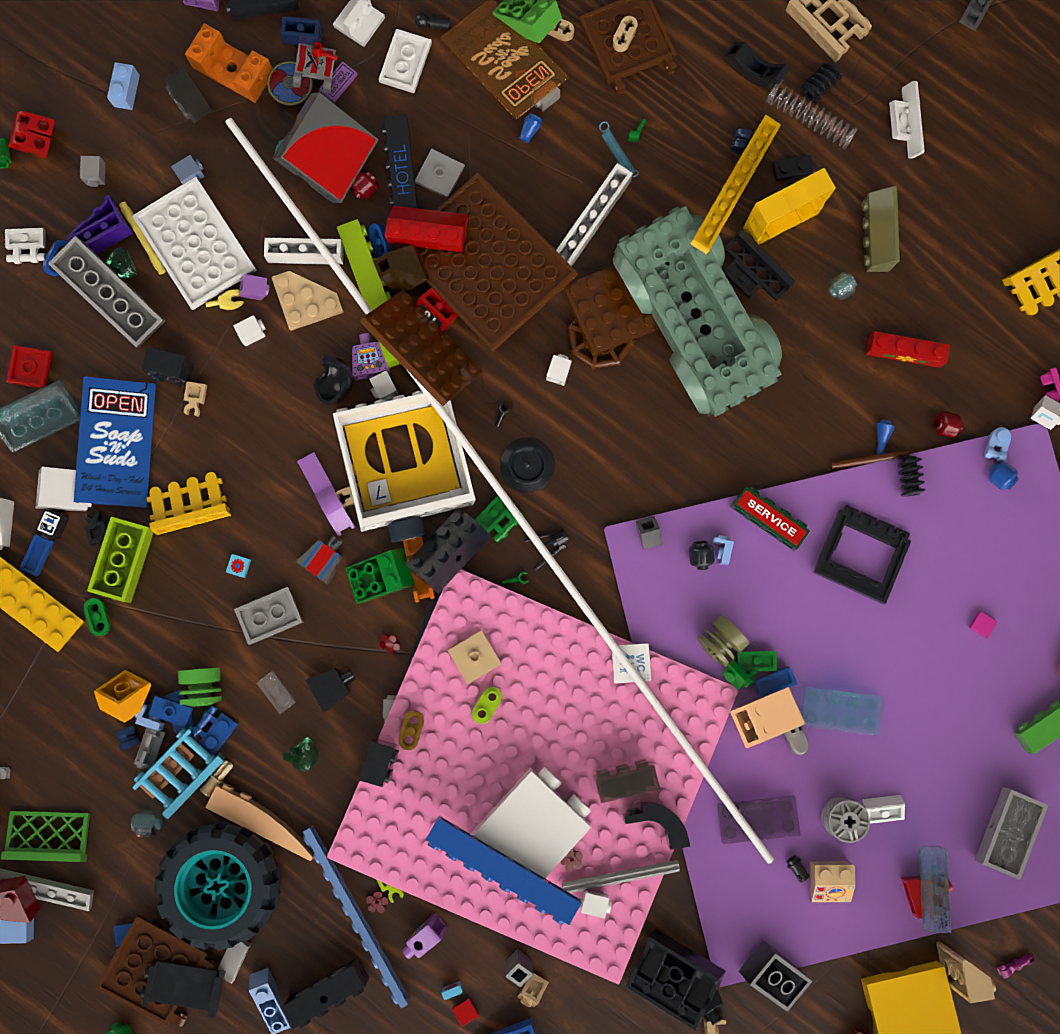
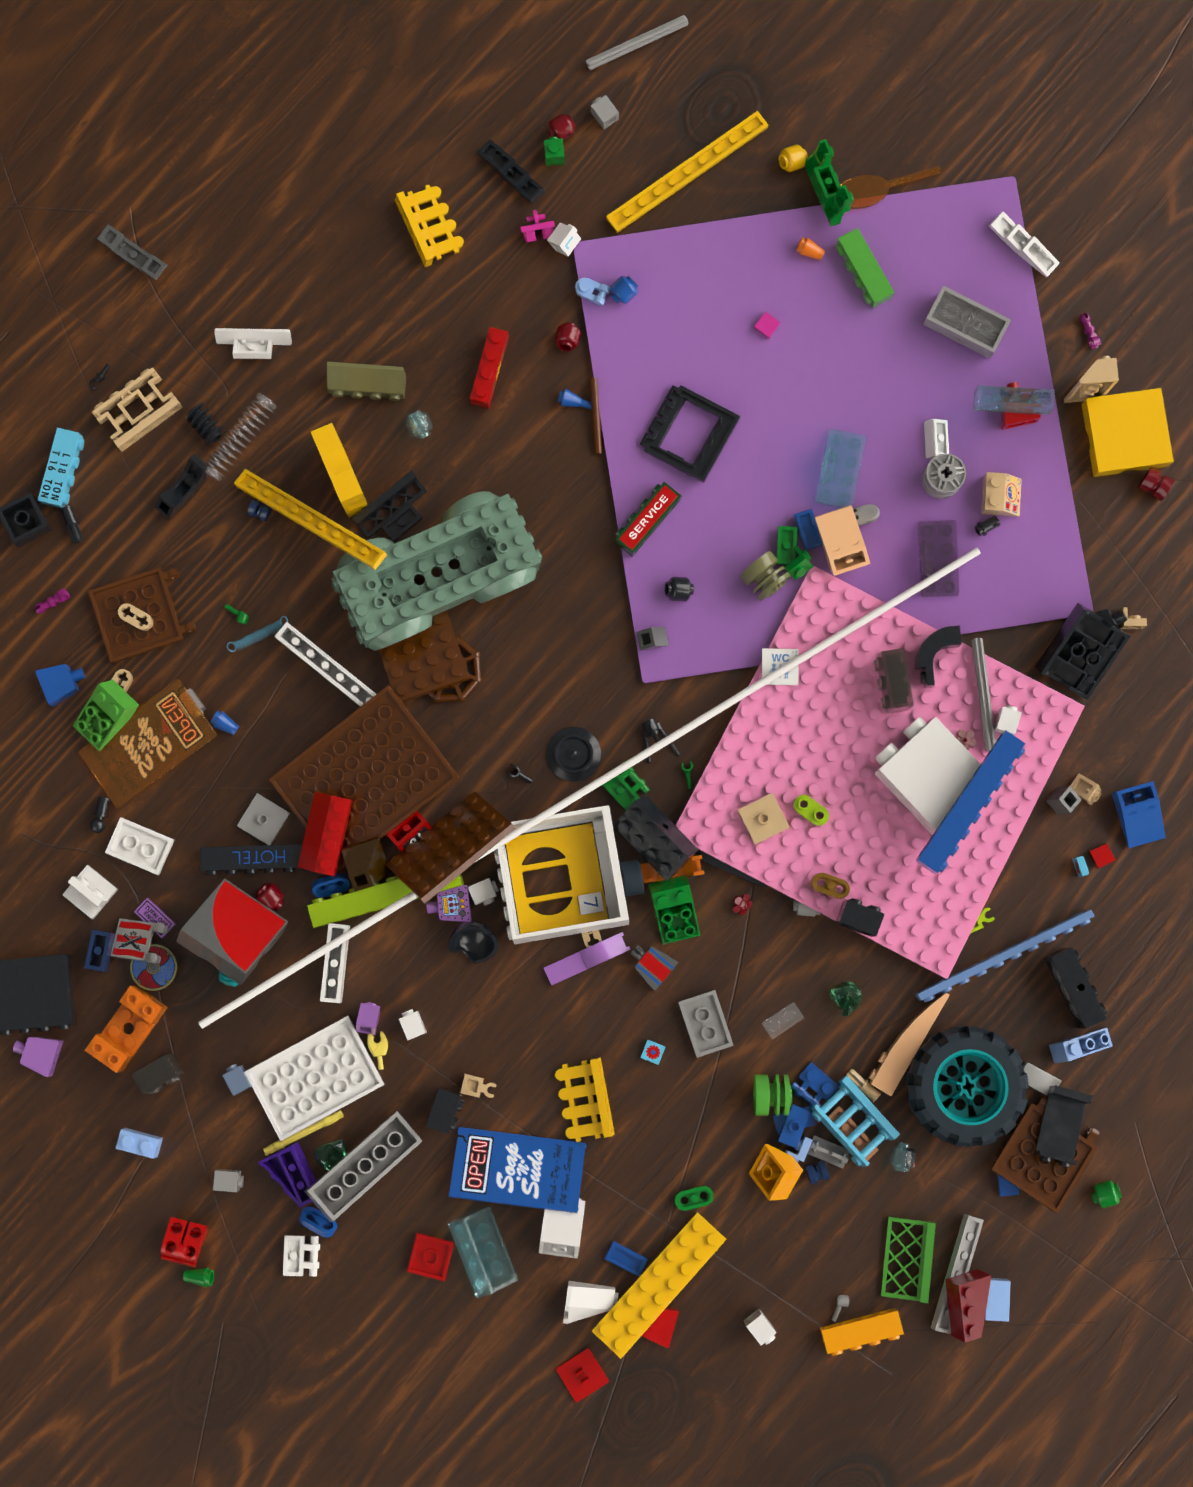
camera: 85 degrees left, 0 degrees up
(51, 524) = (596, 1240): black brick -> none
(96, 529) = (606, 1194): black plate -> none
(120, 560) = (639, 1169): lime brick -> none
(304, 300) = (384, 968): tan plate -> none
(318, 52) = (123, 932): red hand -> none
(330, 687) = (781, 965): black torso -> none
(377, 901) = (993, 935): dark red plant -> none
(425, 937) = (1029, 888): medium lavender torso -> none
(559, 369) = (479, 713): white brick -> none
(725, 552) = (677, 565): light blue bracket -> none
(775, 976) = (1086, 557): black slope -> none
(793, 167) = (290, 461): black plate -> none
(911, 476) = (617, 378): black piece -> none

